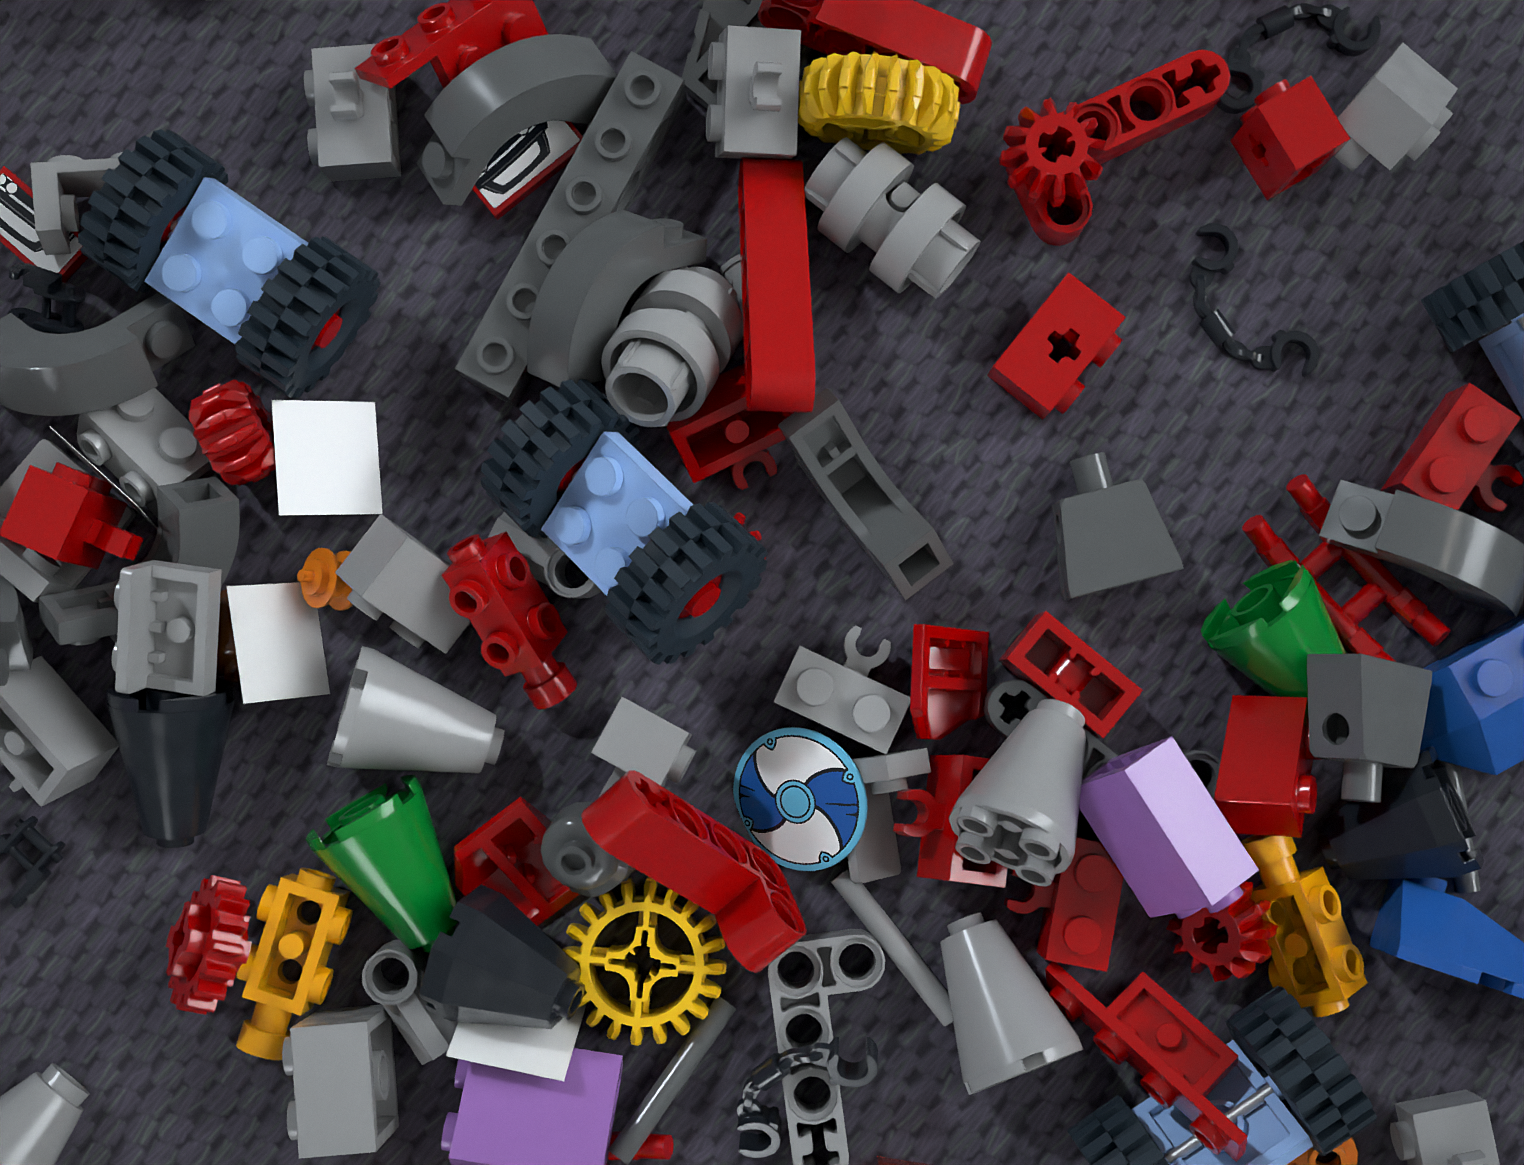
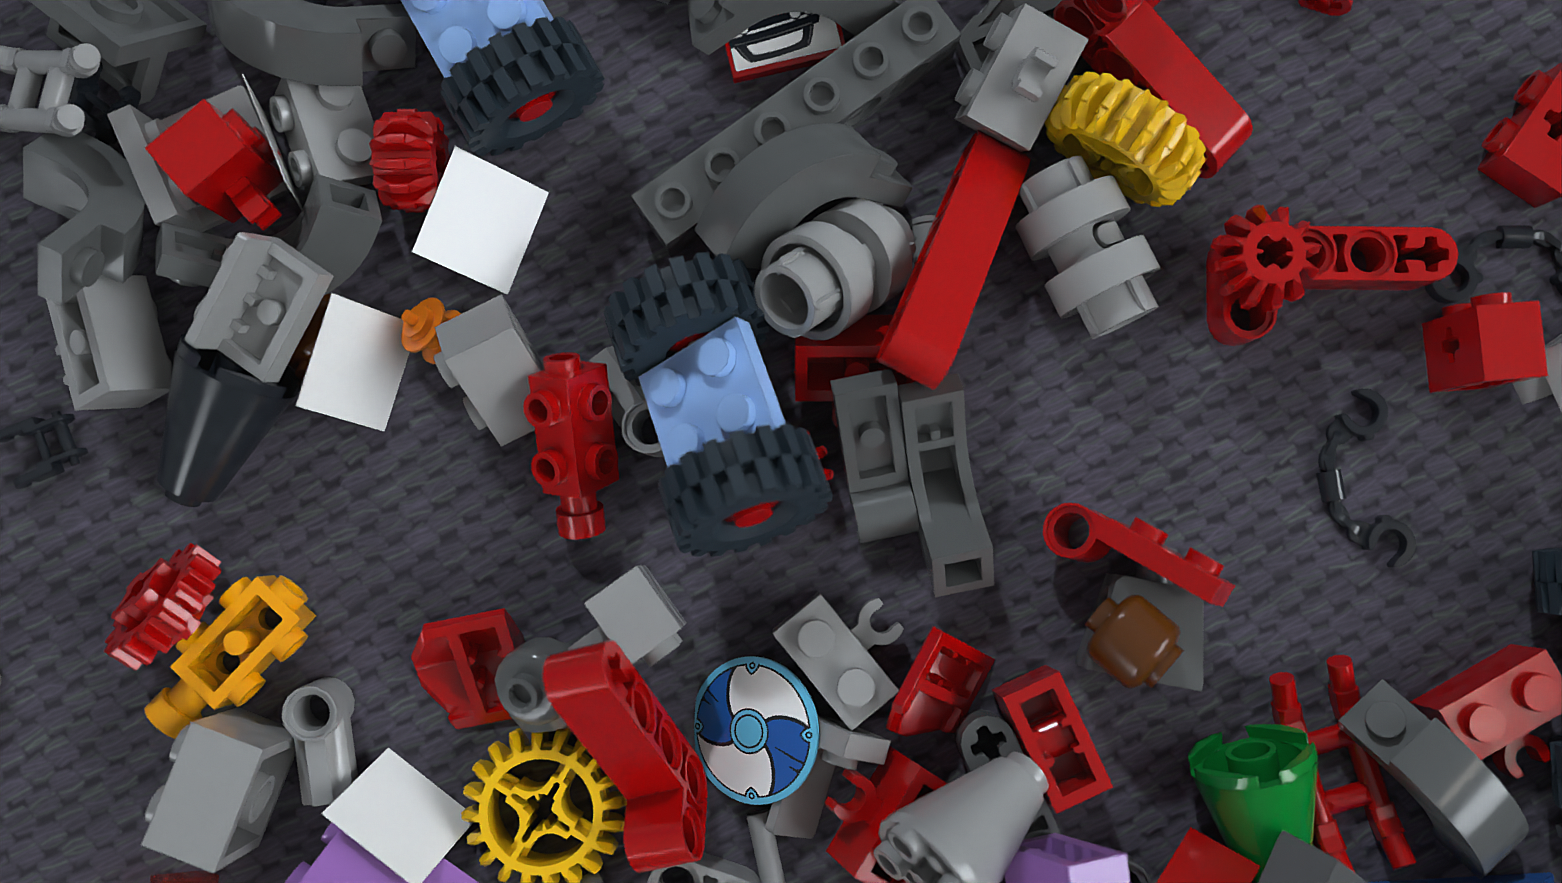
camera: 20 degrees right, 0 degrees up
(392, 862) = (363, 611): green cone -> none
(410, 723) = (439, 493): light grey cone -> none
(499, 968) = (410, 755): black cone -> none
(789, 498) = (874, 455): none -> dark grey plate
(1062, 461) = (1139, 542): none -> red plate
(1069, 314) = (1216, 429): red brick -> none
(1098, 551) = (1133, 641): none -> reddish brown head

